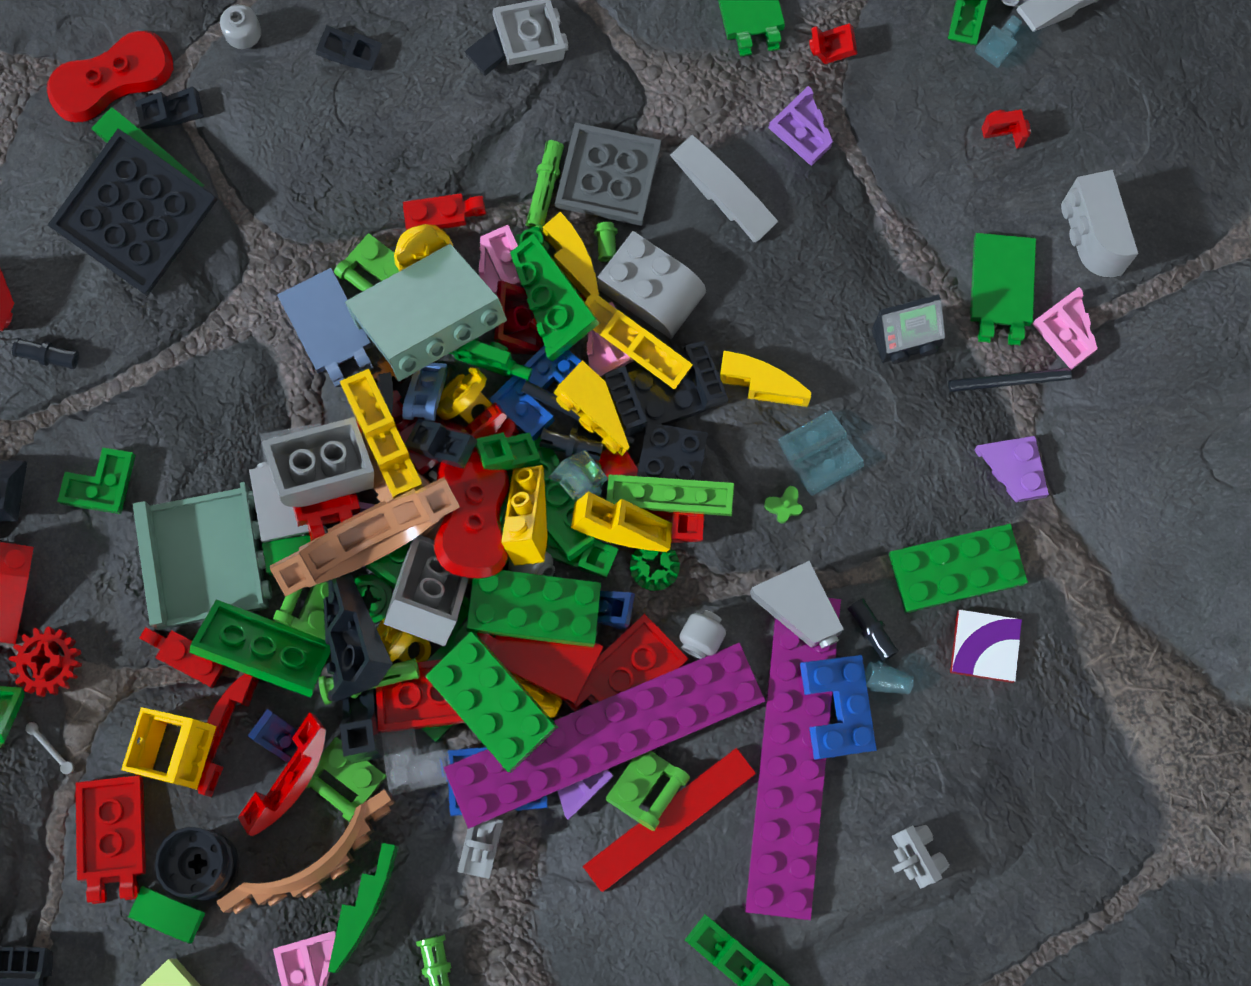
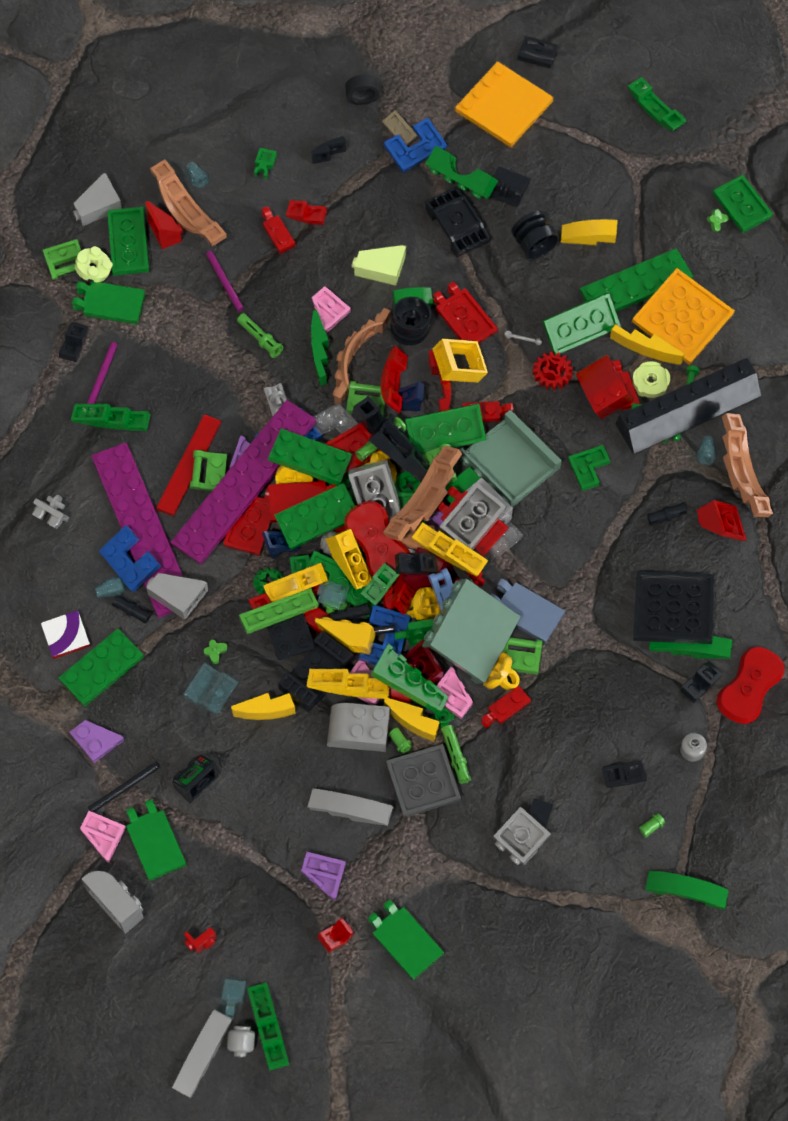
camera: 150 degrees right, 10 degrees down
(702, 634) = (221, 556): light grey head -> none

